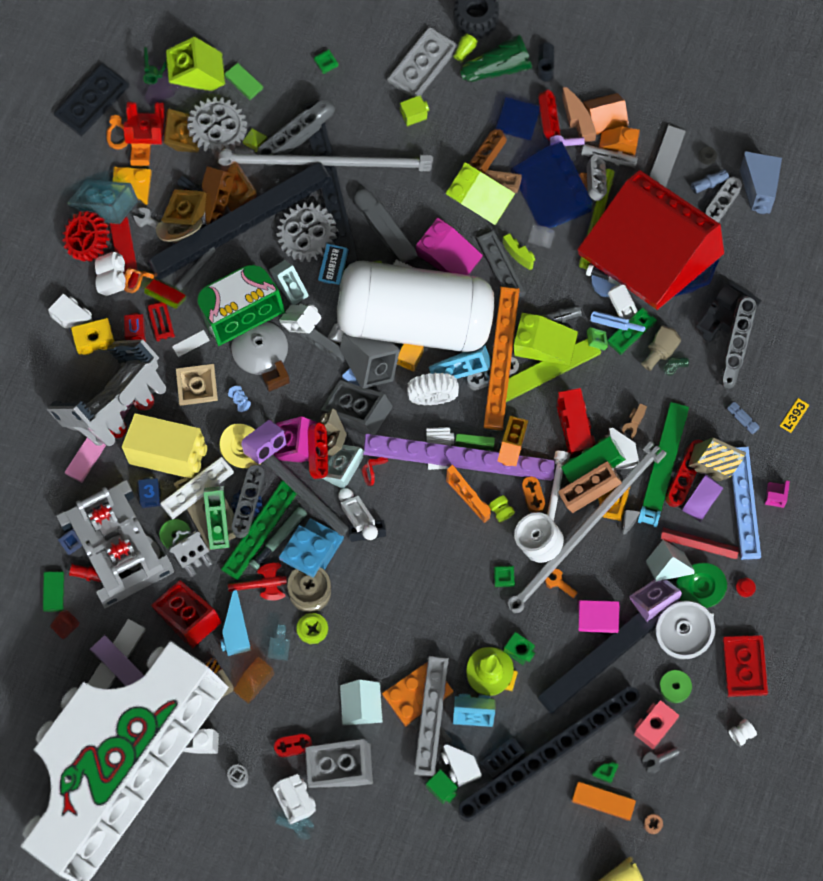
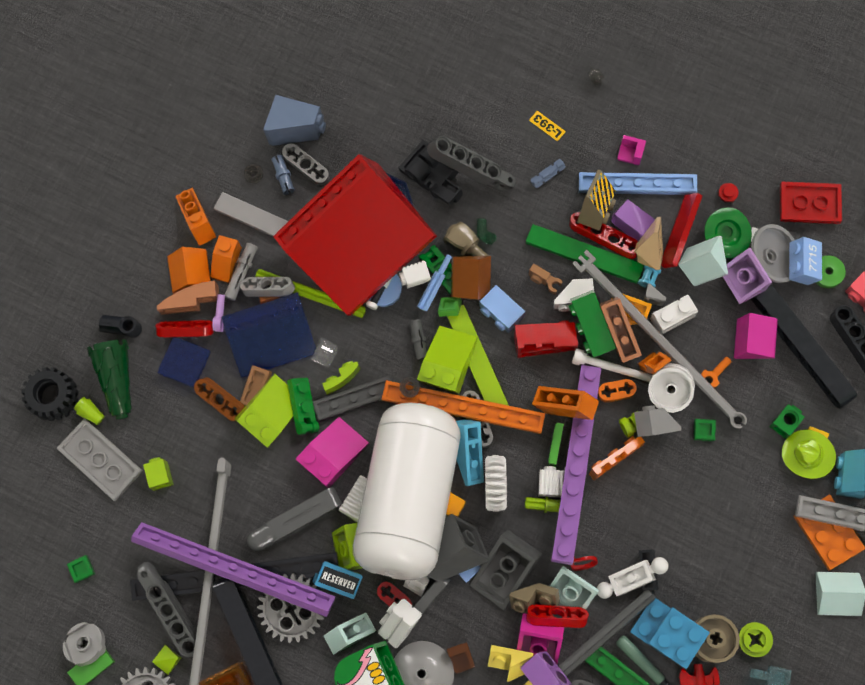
camera: 75 degrees left, 5 degrees up
(259, 79) = (94, 648): none -> light grey plate
(277, 412) = (508, 660): none -> light yellow slope
(328, 318) = (394, 590): none -> red beam
(334, 177) = (233, 569): none -> medium lavender plate
(418, 430) = (546, 504): none -> lime axle
(488, 221) = (302, 406): none -> green plate
(503, 522) = (654, 422): none -> light grey slope
(513, 312) = (409, 393): none -> clear smoke plate
(561, 521) = (654, 362): none -> orange slope
(600, 384) = (501, 309): none -> light blue brick
(612, 539) = (674, 314): none -> white brick
(626, 353) = (471, 276): none -> dark orange slope
(657, 110) = (195, 216): none -> orange slope
(677, 512) = (650, 246): none -> tan slope
(681, 658) = (805, 261): none -> light blue brick

